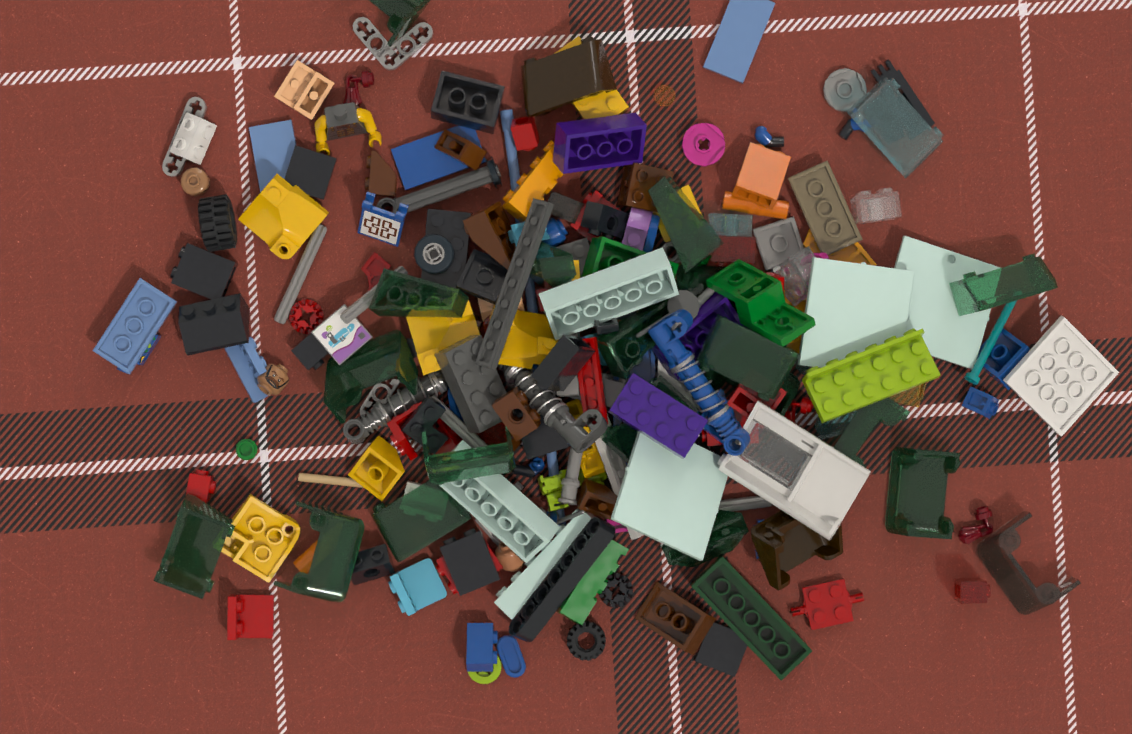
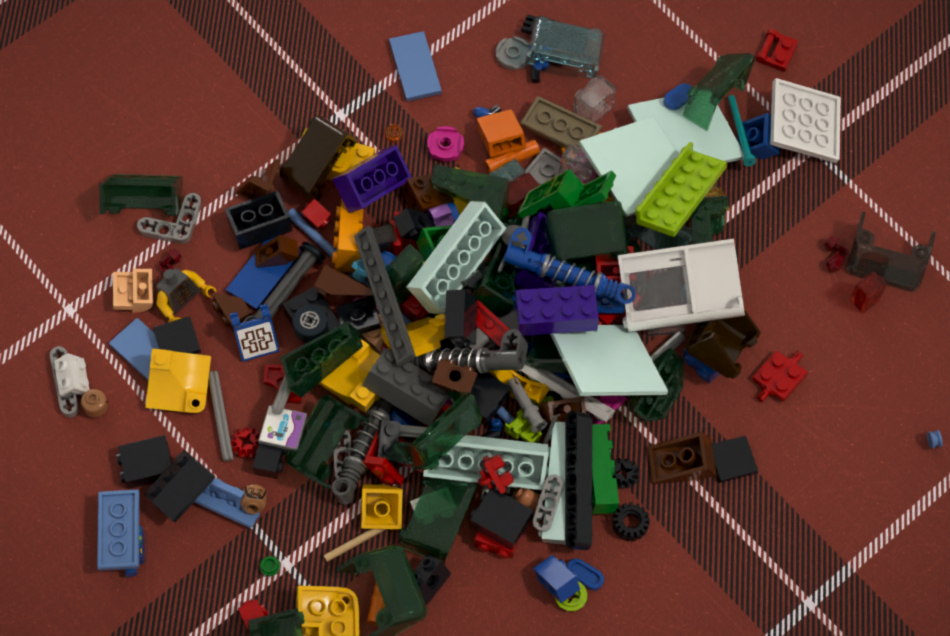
camera: 35 degrees left, 25 degrees down
(217, 223) = (131, 415): black tyre -> none
(417, 586) = (475, 572): medium azure bracket -> none
(486, 524) = (492, 465): none -> red hips
(498, 69) = (258, 186): none -> reddish brown bracket
(504, 583) = (539, 515): none -> light grey beam
(751, 617) = (735, 418): dark green brick -> none
(919, 492) = (774, 256): clear green windscreen -> none
(962, 260) = (677, 97): none -> blue tile
(981, 402) = (768, 175): blue bracket -> none
(1106, 281) = (782, 52): none -> red plate

